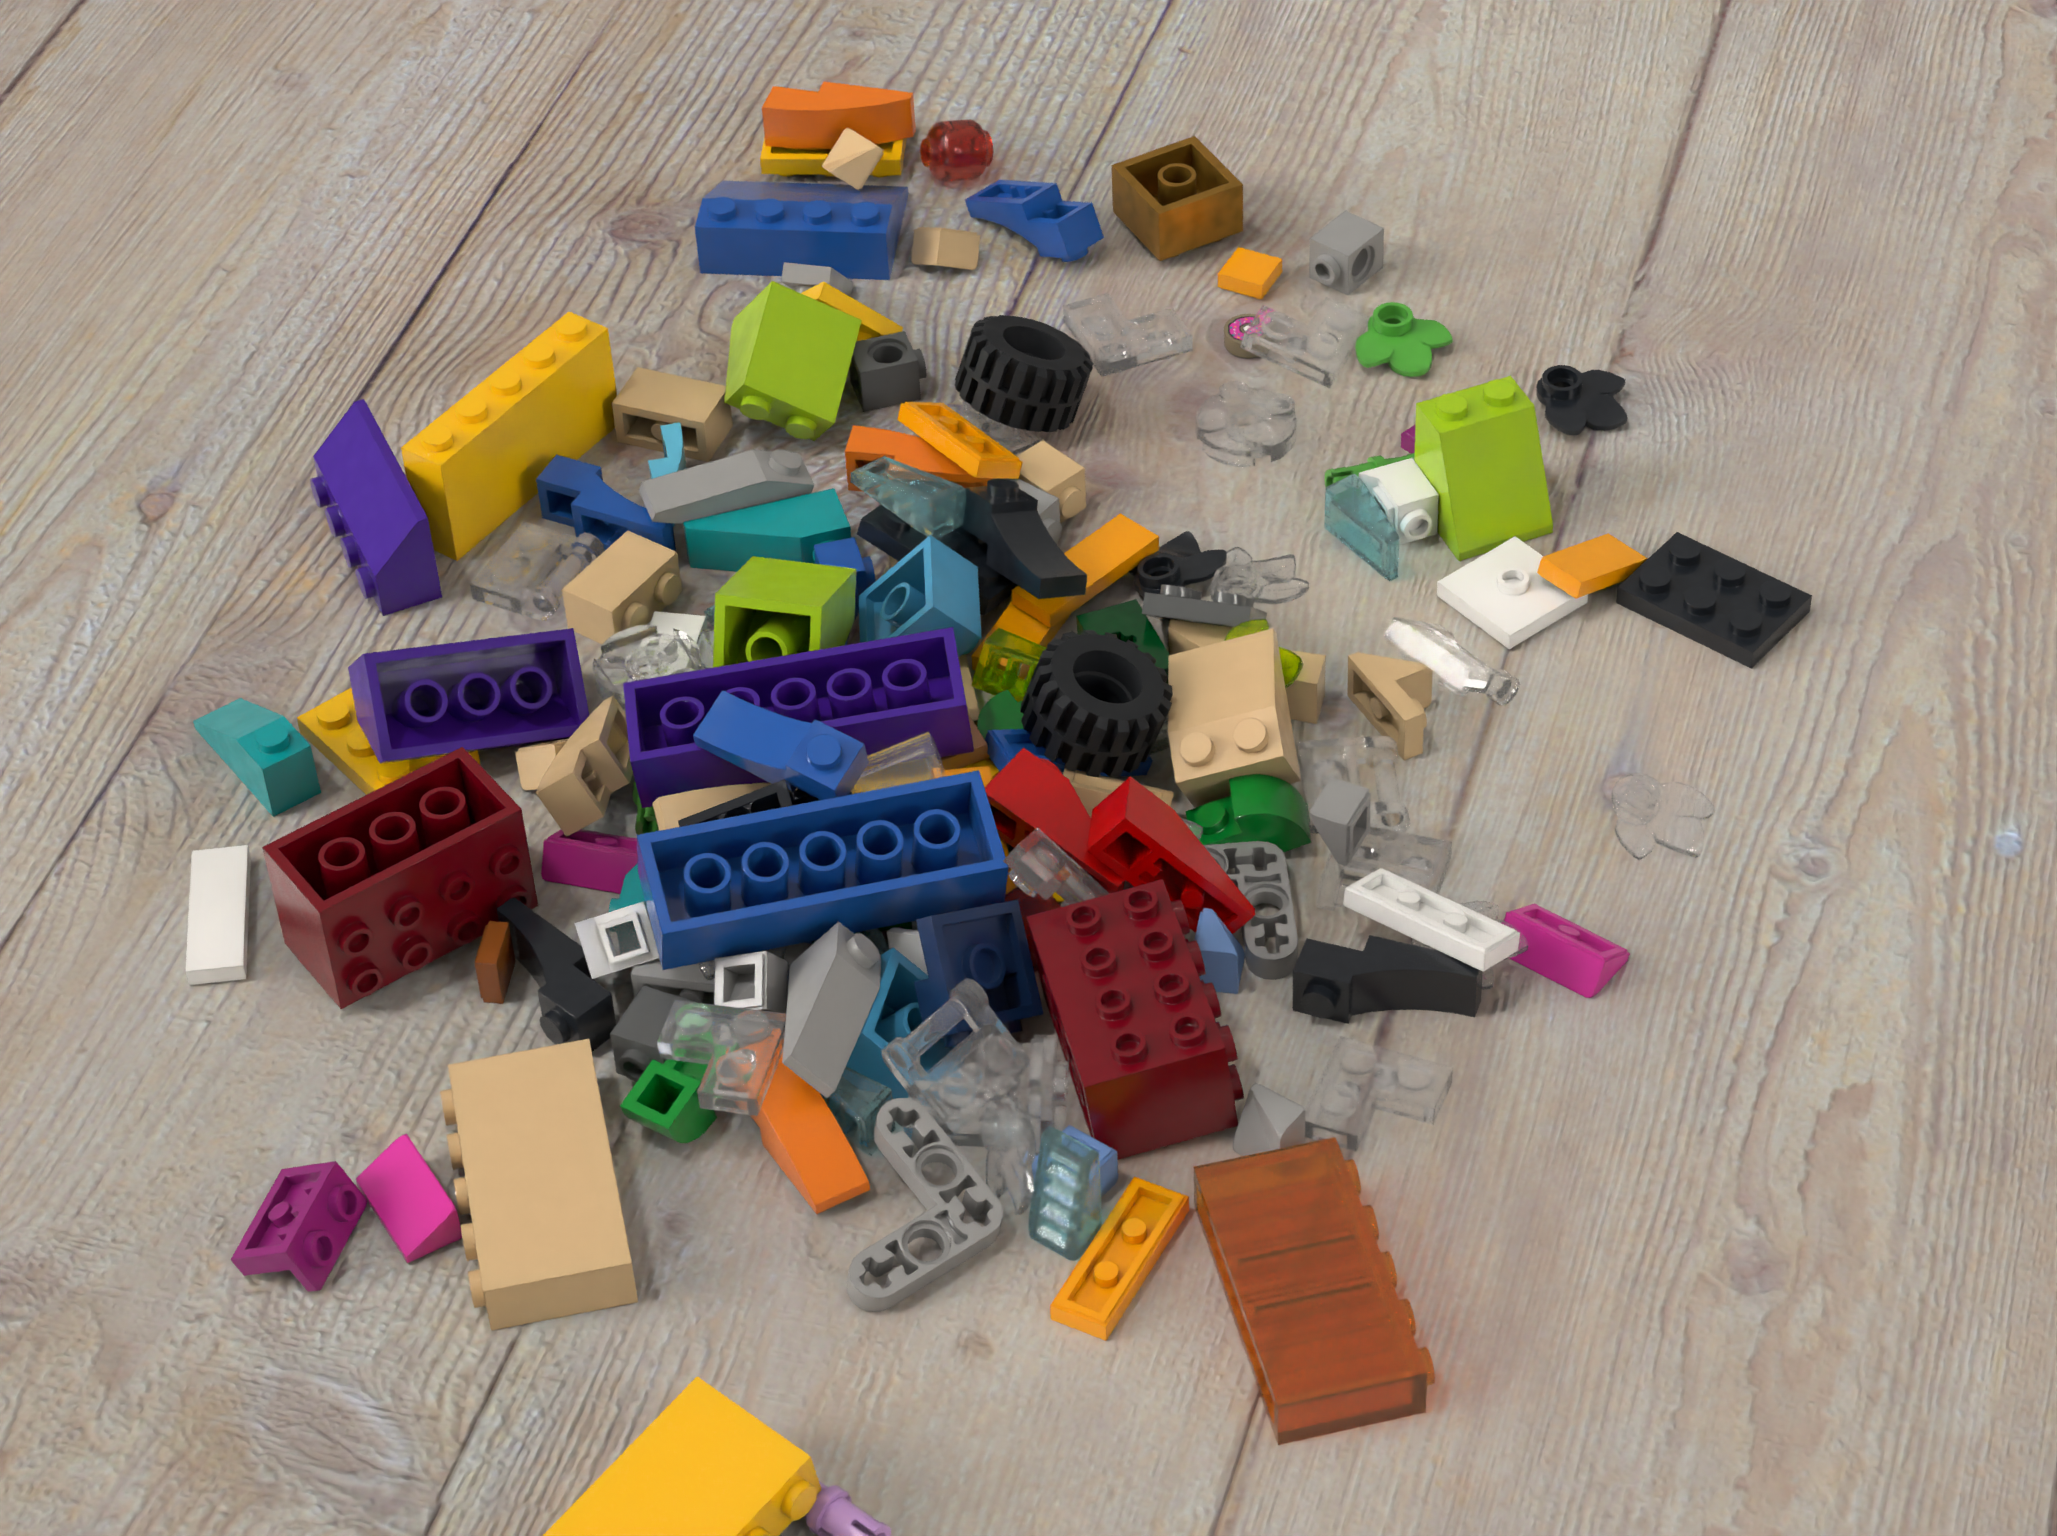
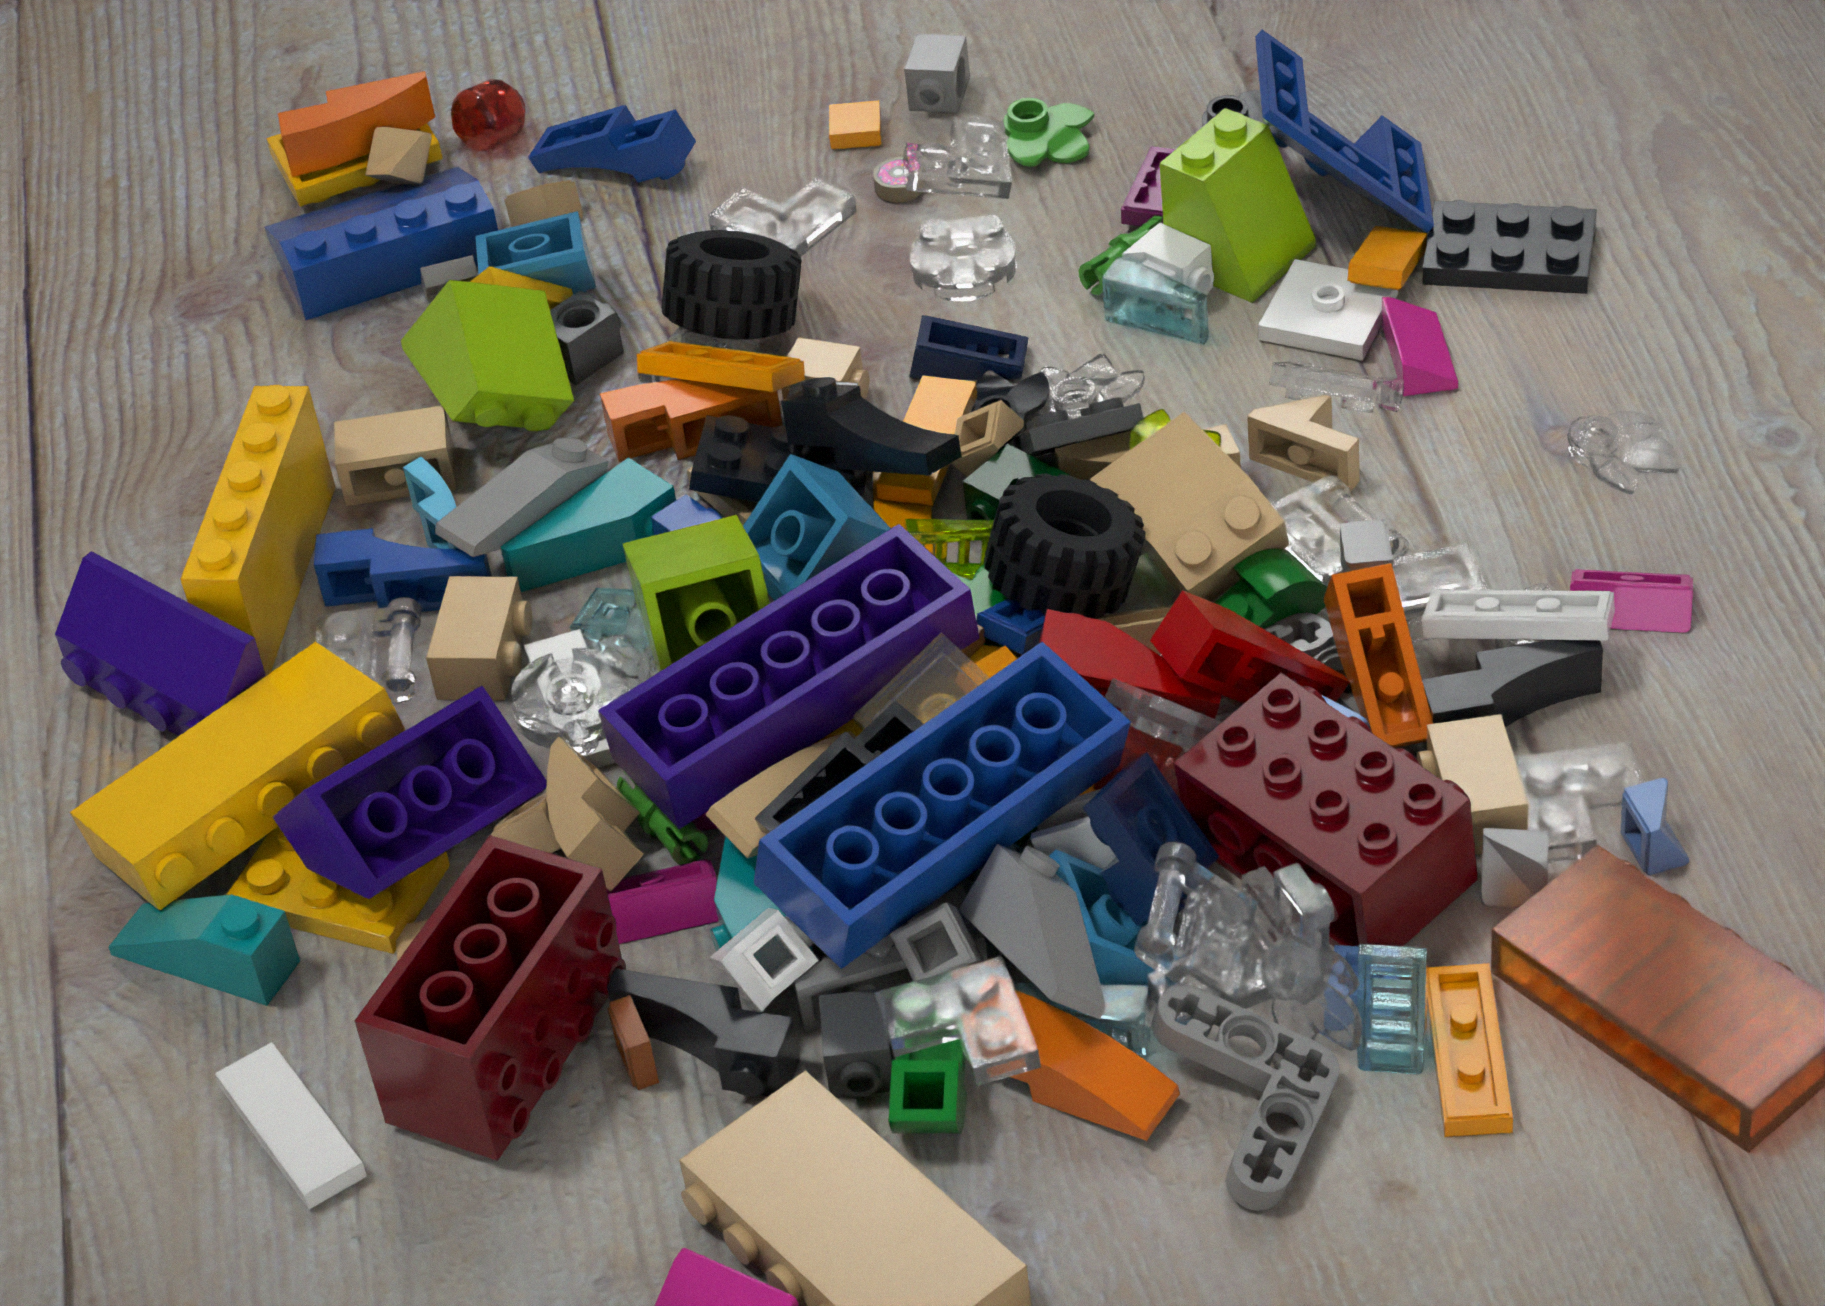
camera: 25 degrees left, 0 degrees up
(316, 629) = (232, 772): none -> yellow brick
(782, 748) = (822, 703): blue slope -> none
(897, 287) = (542, 250): none -> dark azure slope
(915, 496) = (734, 428): clear light blue slope -> none
(1126, 581) = (983, 434): none -> tan slope
(1159, 501) = (966, 351): none -> dark blue slope
(1177, 198) = (744, 80): pearl gold brick -> none
(1285, 903) = (1378, 653): none -> orange slope
(1292, 1040) = (1482, 763): none -> tan brick
(1411, 1146) = (1647, 830): none -> medium blue slope
(1558, 655) = (1417, 348): none -> dark pink slope
(1638, 487) = (1380, 165): none -> blue slope

